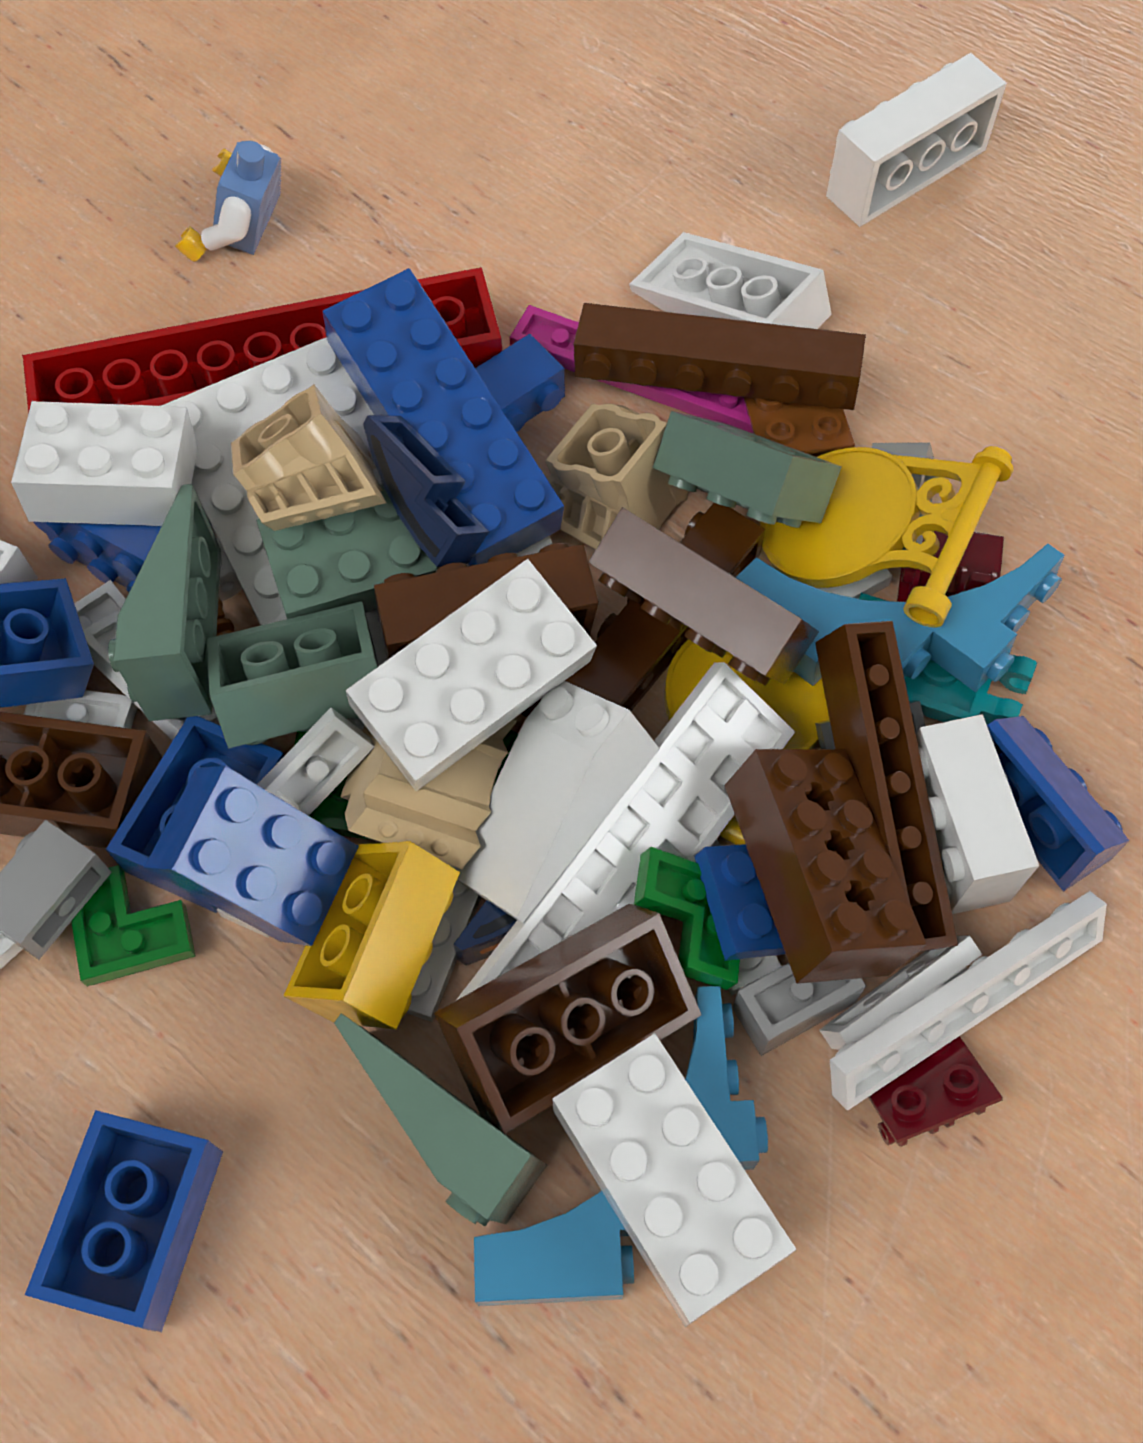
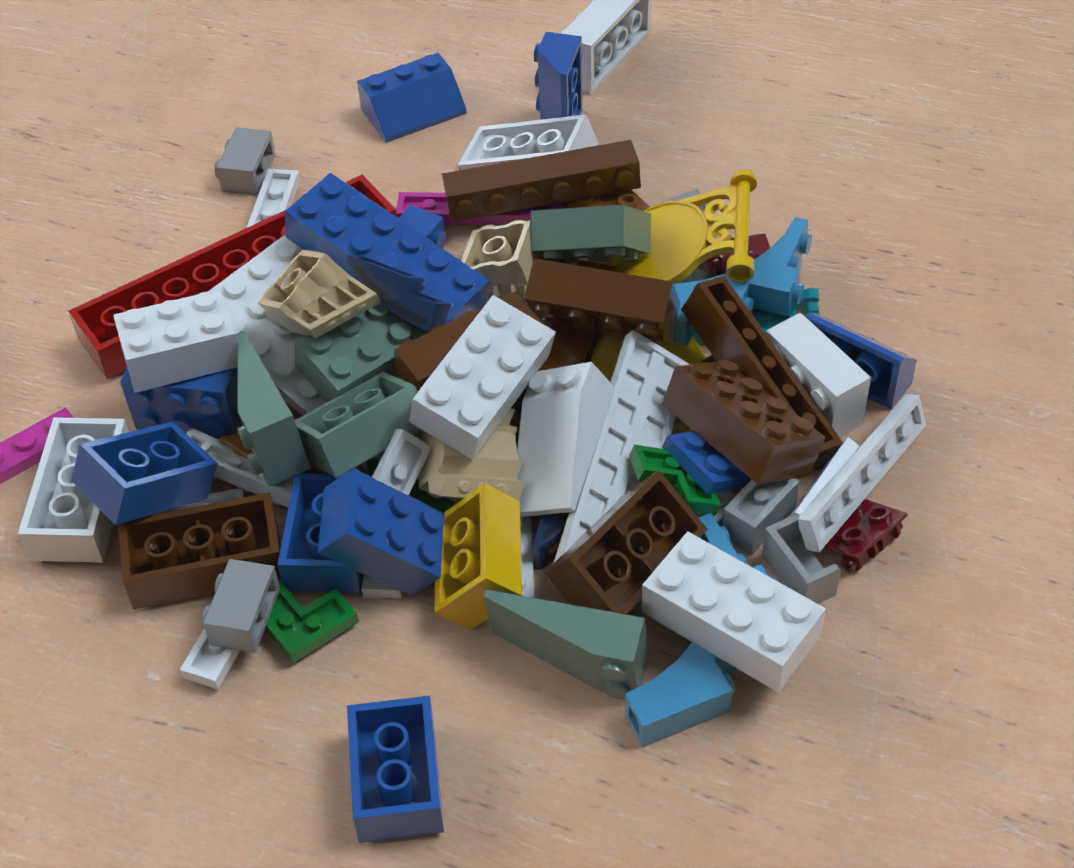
camera: 20 degrees left, 15 degrees down
(243, 201) = (174, 185): medium blue torso -> none
(355, 190) = (245, 161): none -> light grey brick
(368, 258) = (275, 194): none -> white plate
(610, 159) = (411, 97): none -> blue slope
(812, 197) = (559, 75): none -> blue slope
(812, 1115) = (795, 564): none -> light grey panel

